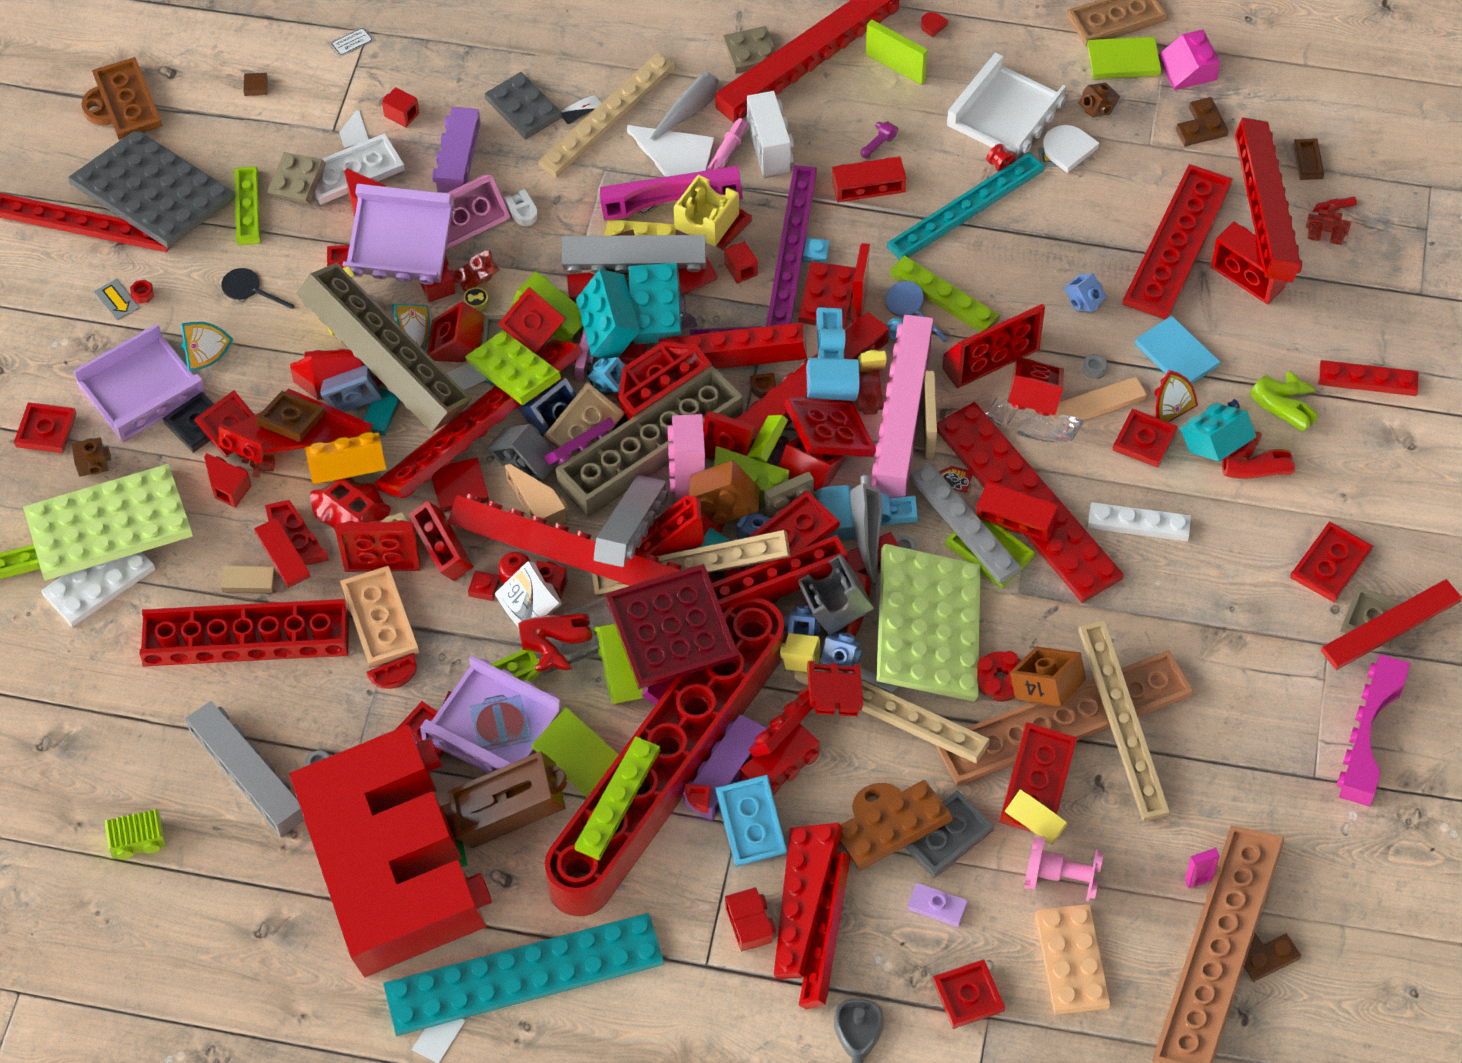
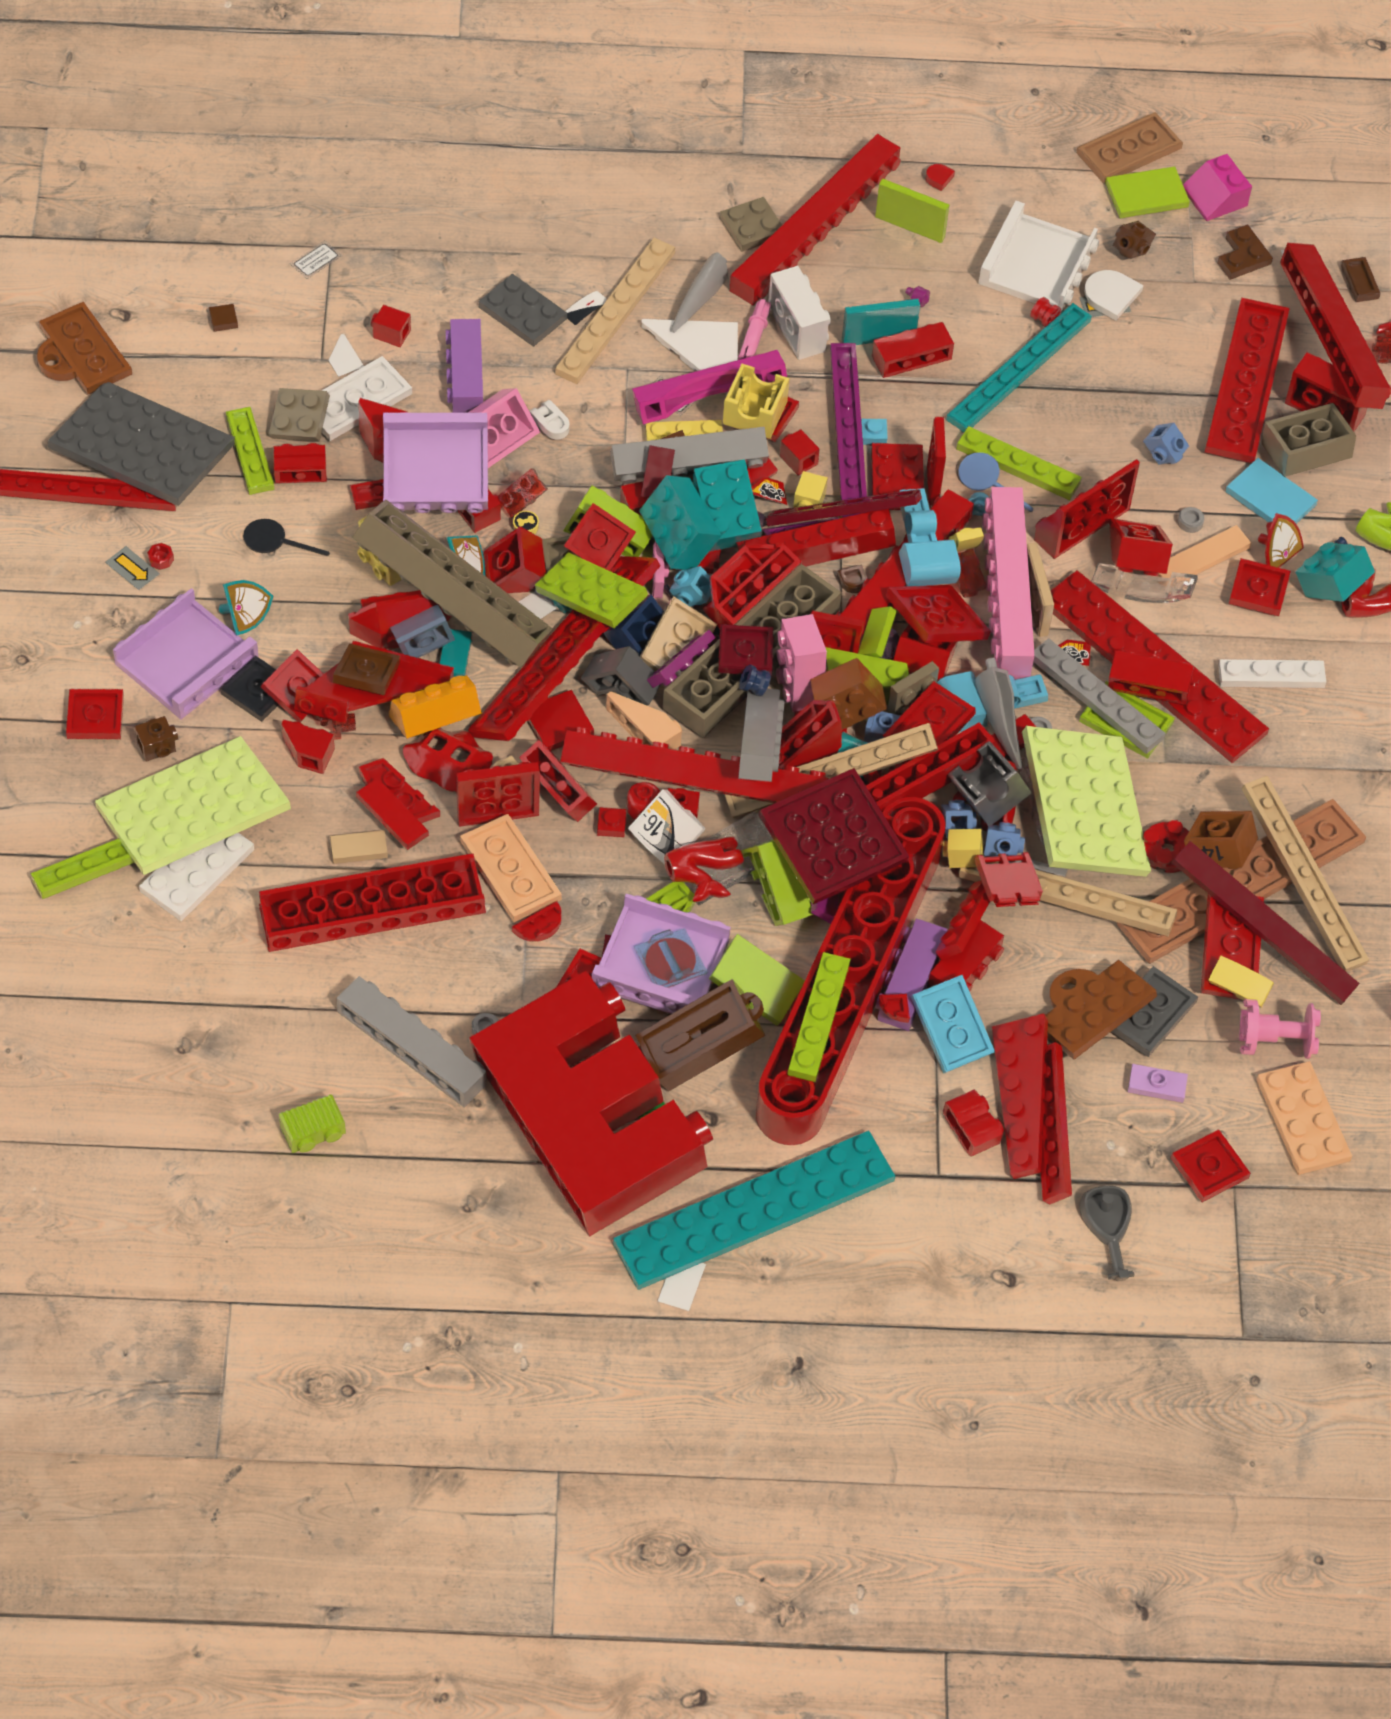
camera: 15 degrees left, 0 degrees up
(286, 222) = (300, 463): none -> red brick
(601, 258) = (658, 465): none -> dark red tile
(639, 440) = (745, 646): none -> dark red tile
(640, 469) = (755, 680): none -> dark blue wheel
(704, 293) = (770, 490): none -> sticker
(741, 301) = (810, 489): none -> light yellow brick
(753, 318) = (844, 507): none -> dark red tile
(840, 148) = (872, 321): none -> teal tile
(1073, 763) = (1265, 923): none -> dark red tile
(1221, 303) = (1308, 439): none -> dark tan brick

